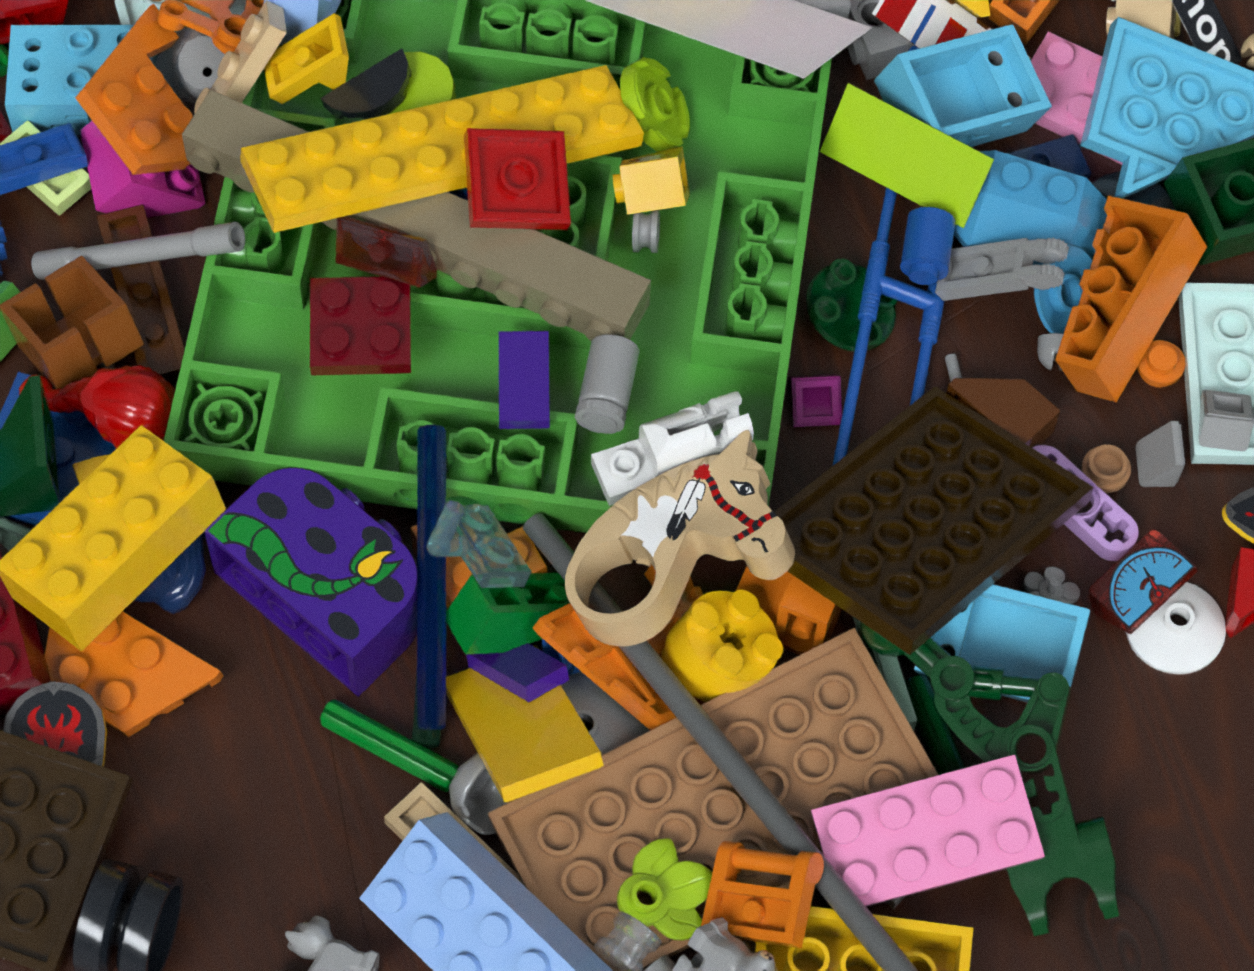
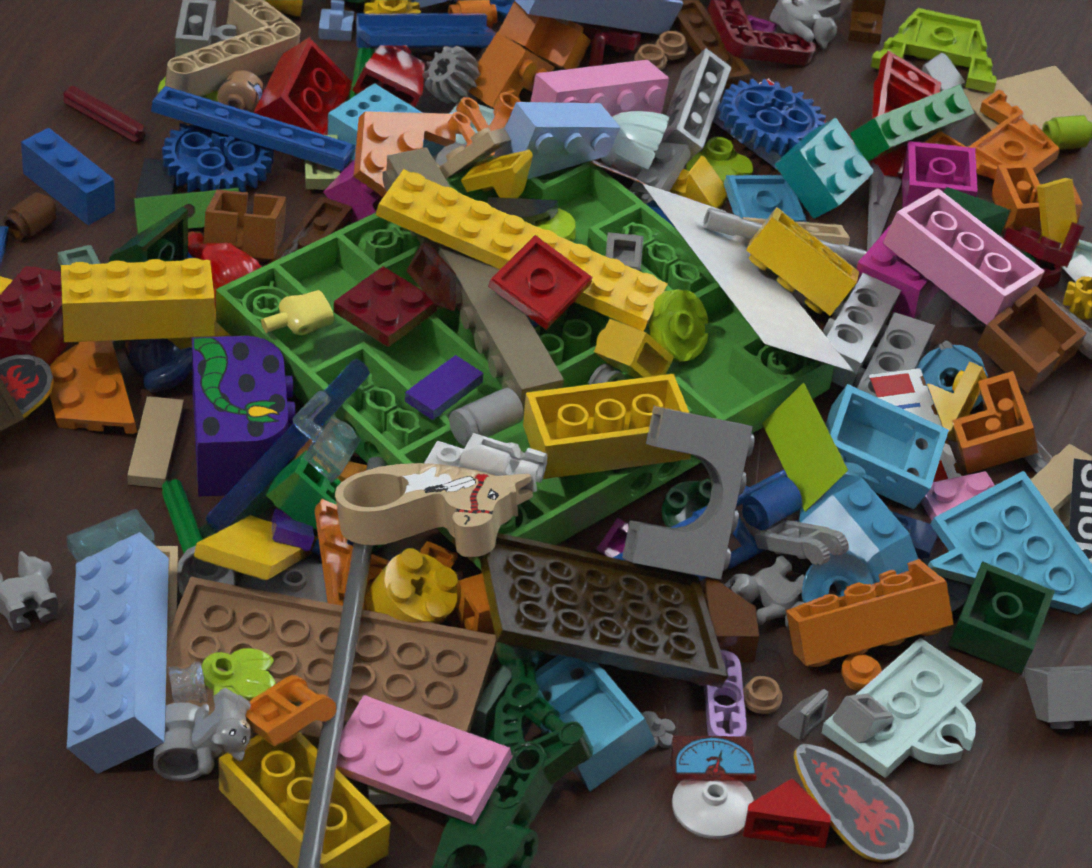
camera: 40 degrees right, 20 degrees down
(202, 242) = (346, 216): light grey piece -> none
(252, 670) = (155, 442): none -> tan tile
(294, 410) = (301, 314): none -> light yellow piece
(340, 828) = (107, 533): none -> clear light blue plate
(520, 57) = (625, 249): none -> light grey slope
(742, 298) = (600, 424): none -> yellow brick
(922, 349) = (703, 544): none -> light grey arch
(1003, 339) = (771, 589): none -> light grey animal

